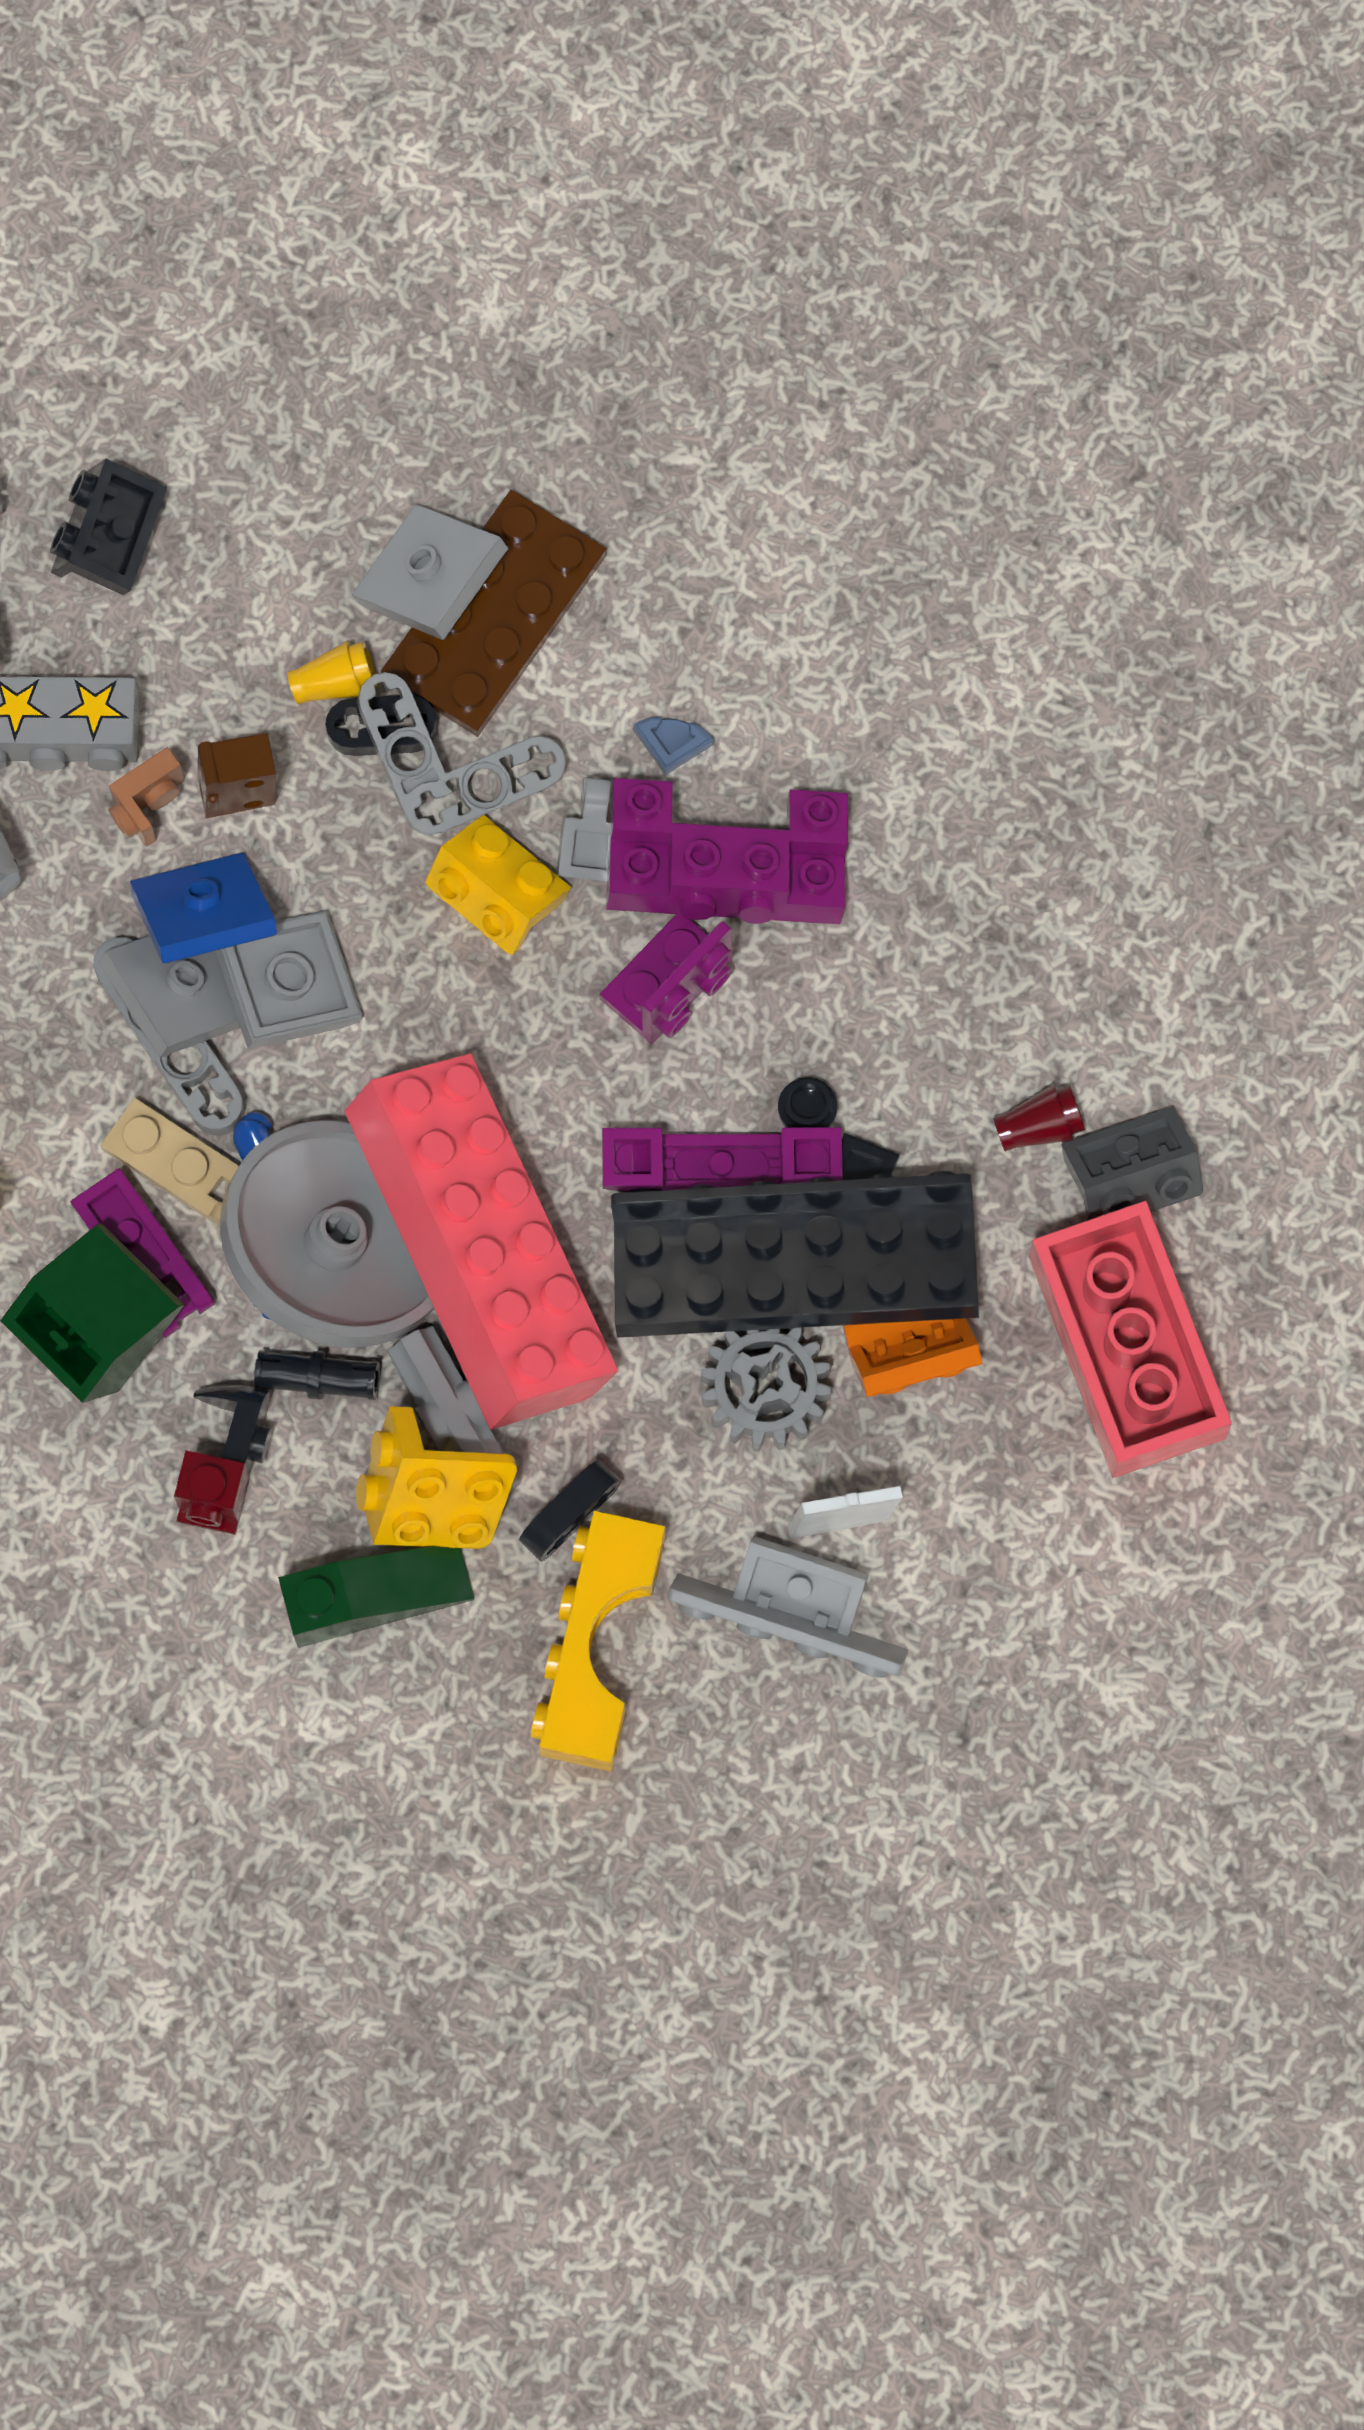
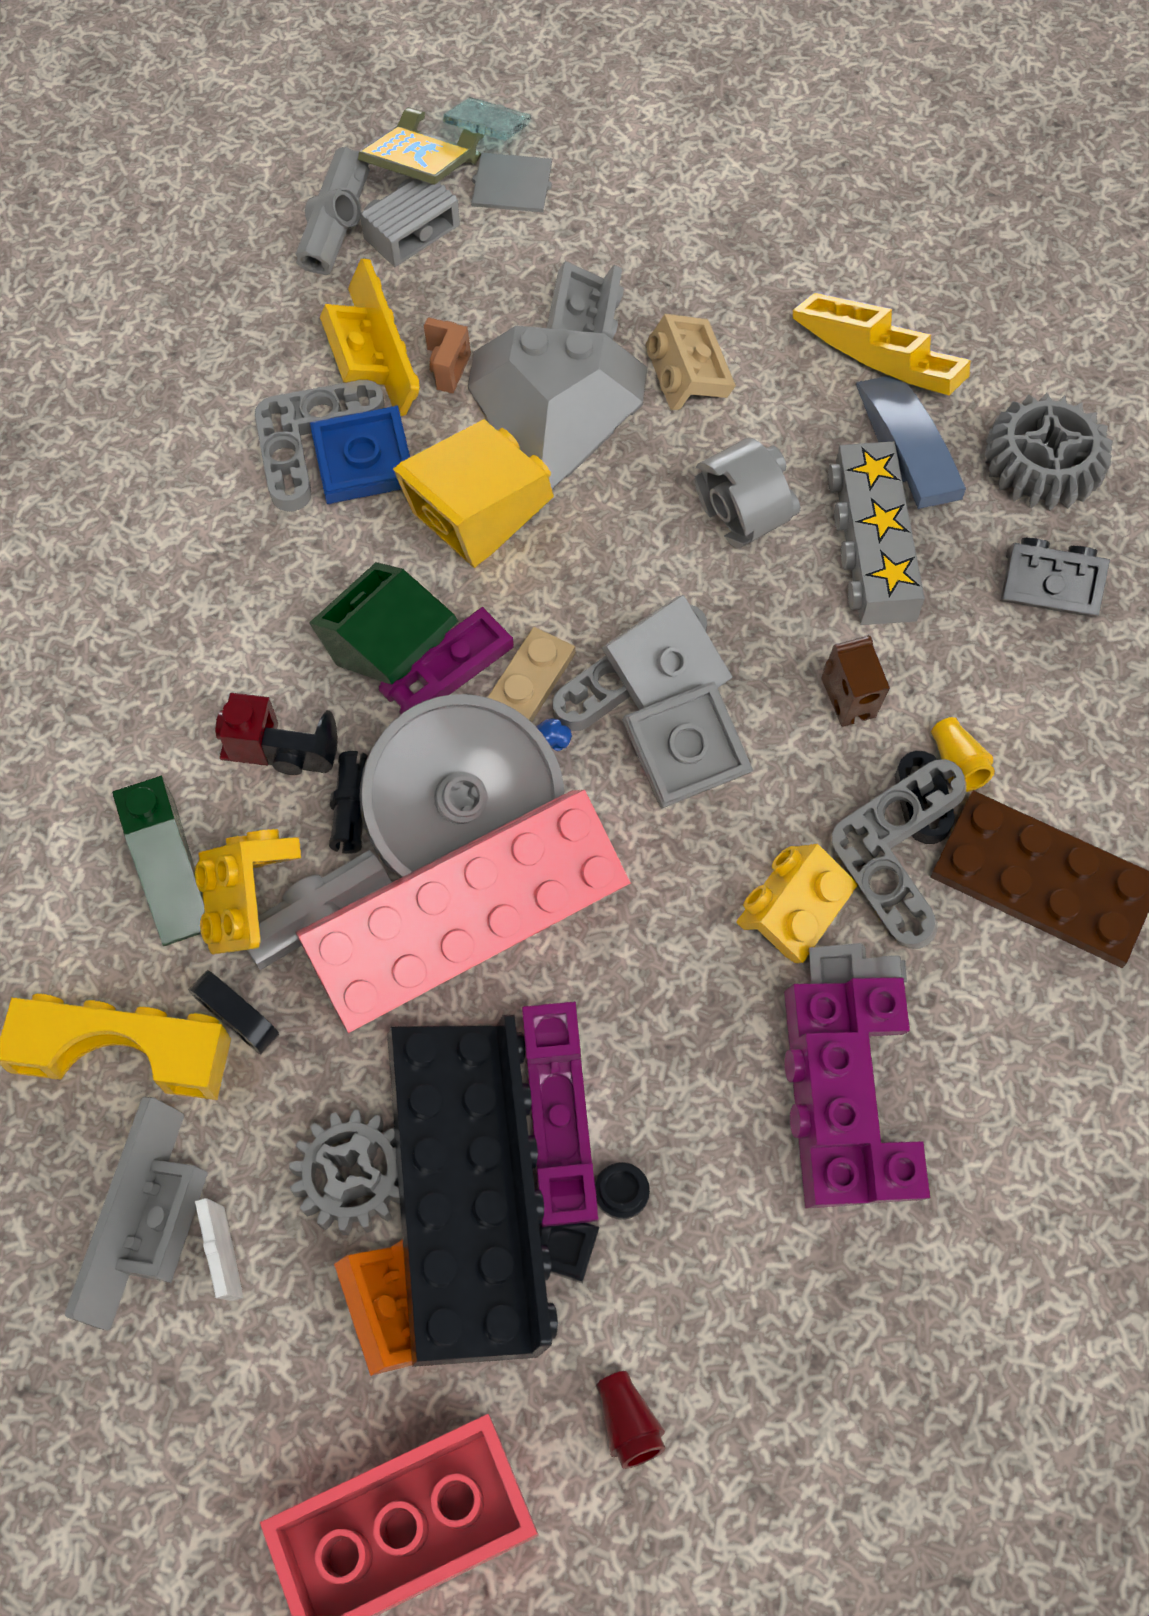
camera: 85 degrees right, 10 degrees down
(149, 784) = (830, 617): nougat bracket -> none
(203, 908) = (735, 670): blue plate -> none
(429, 571) = (1070, 817): light grey plate -> none
(668, 976) = (727, 1052): magenta bracket -> none
(672, 741) = (955, 1039): sand blue tile -> none
(1134, 1164) = (588, 1523): dark grey bracket -> none

